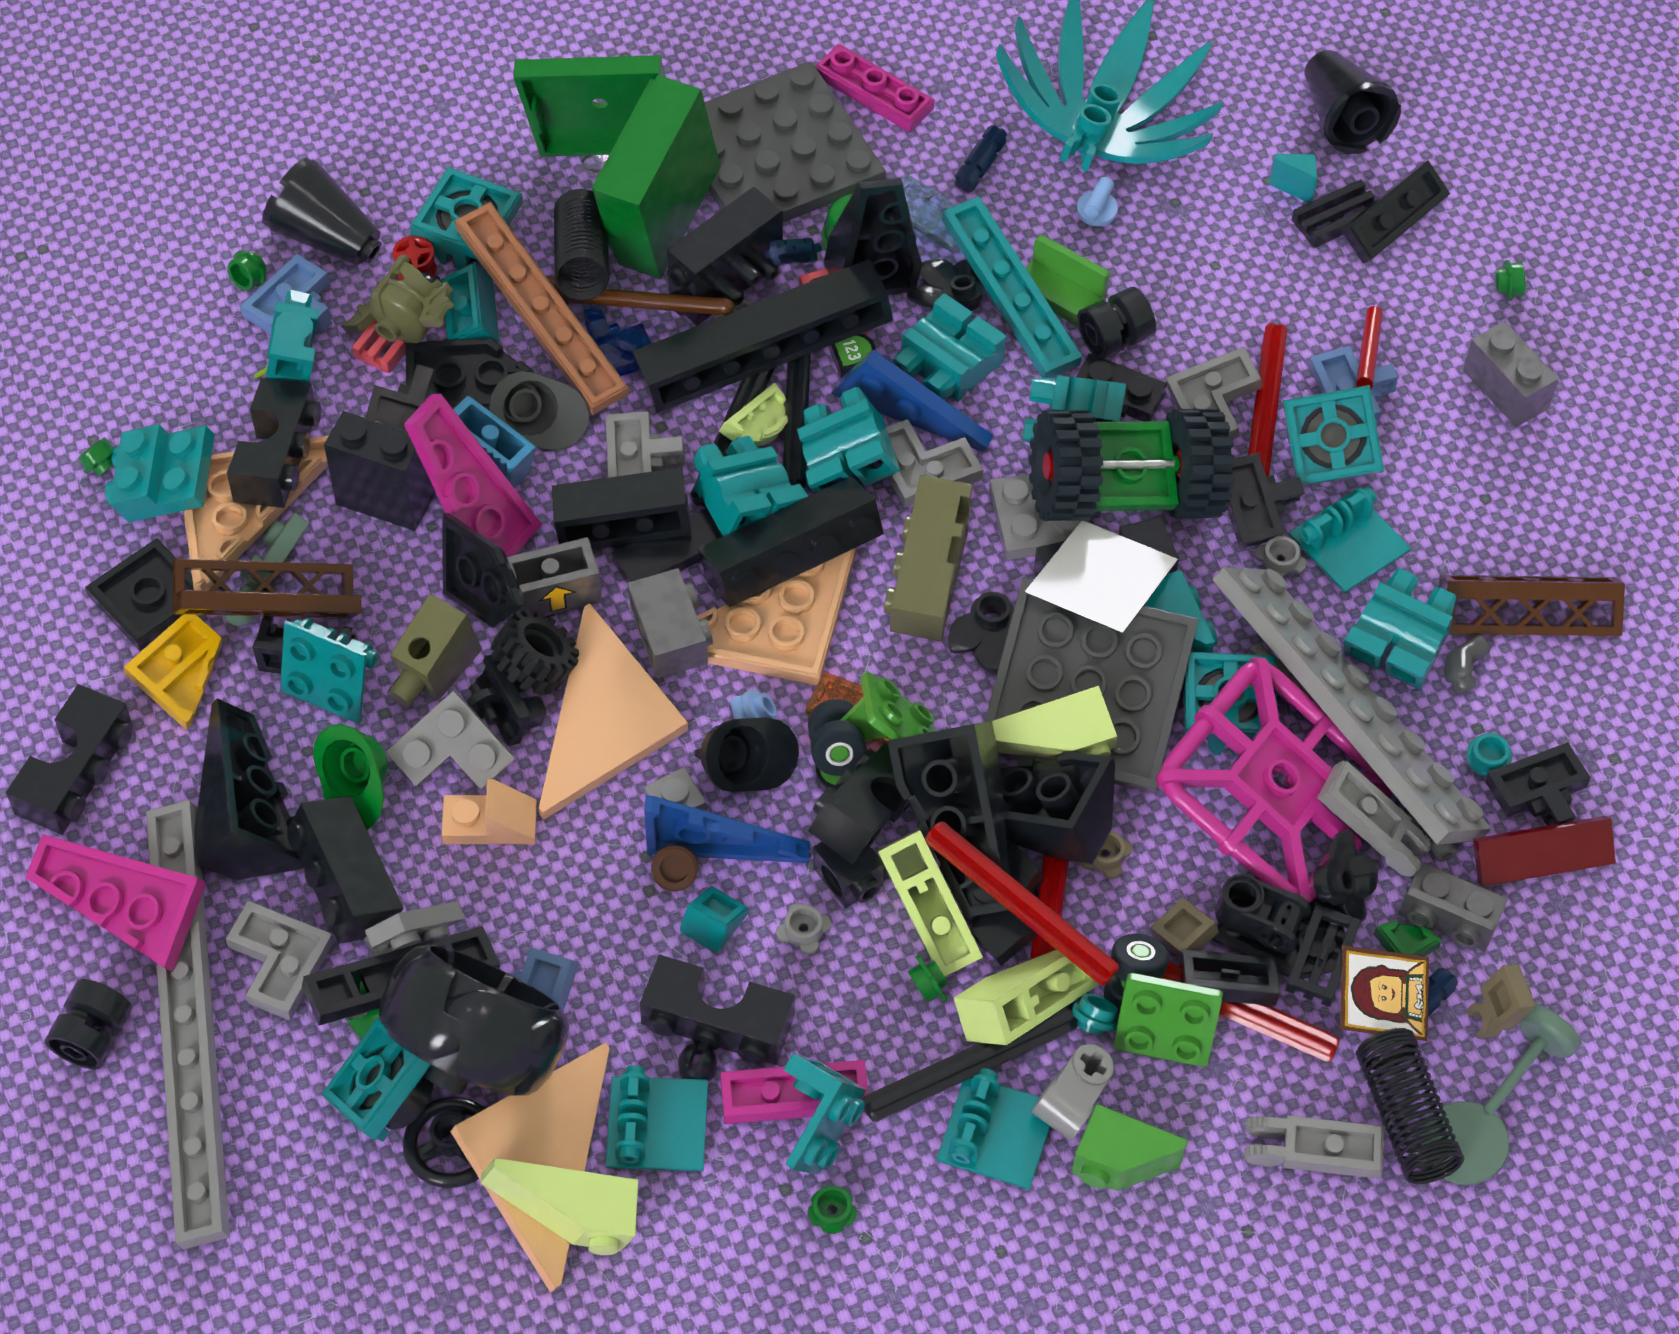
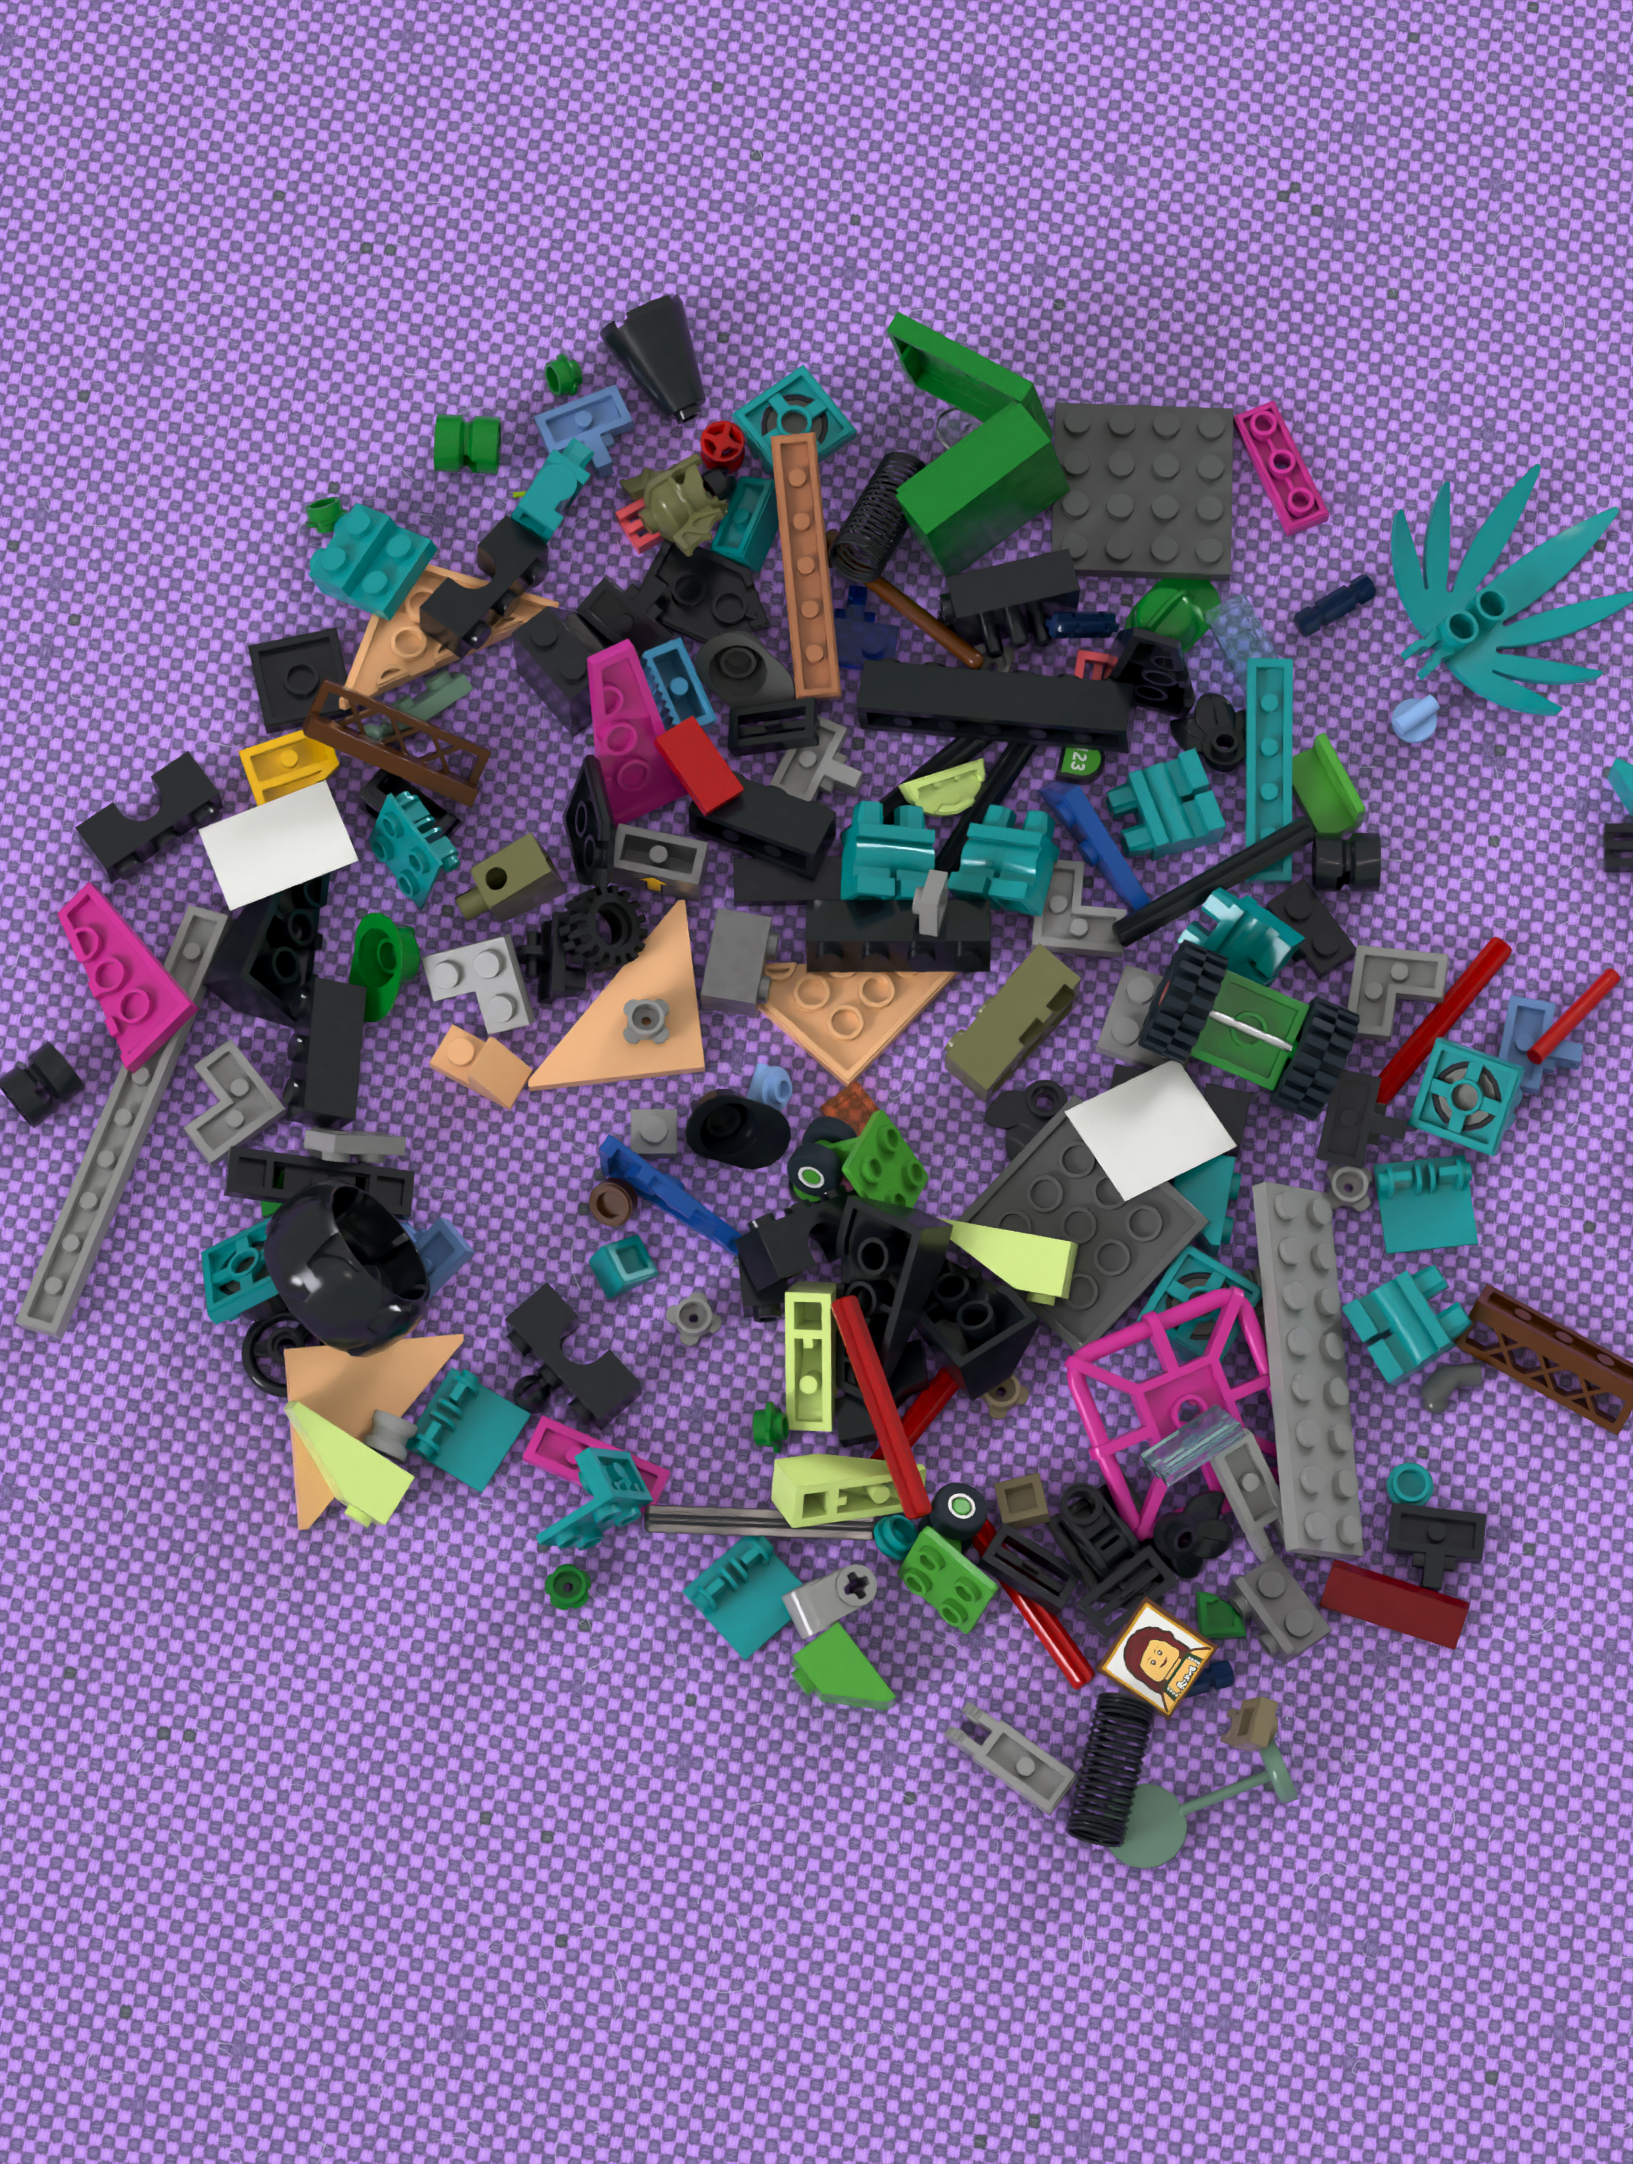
camera: 30 degrees right, 15 degrees up
(194, 349) = (467, 443): none -> green wheel
(203, 721) = (278, 845): none -> white sticker
(544, 482) = (698, 766): none -> red tile
(589, 442) = (774, 734): none -> black tile
(593, 1152) = (390, 1435): none -> light grey wheel
(612, 697) = (641, 1009): none -> light grey plate
(807, 491) = (931, 902): none -> light grey plate
(1019, 385) = (1223, 875): none -> black axle
(1306, 795) = (1192, 1445): none -> clear light blue tile

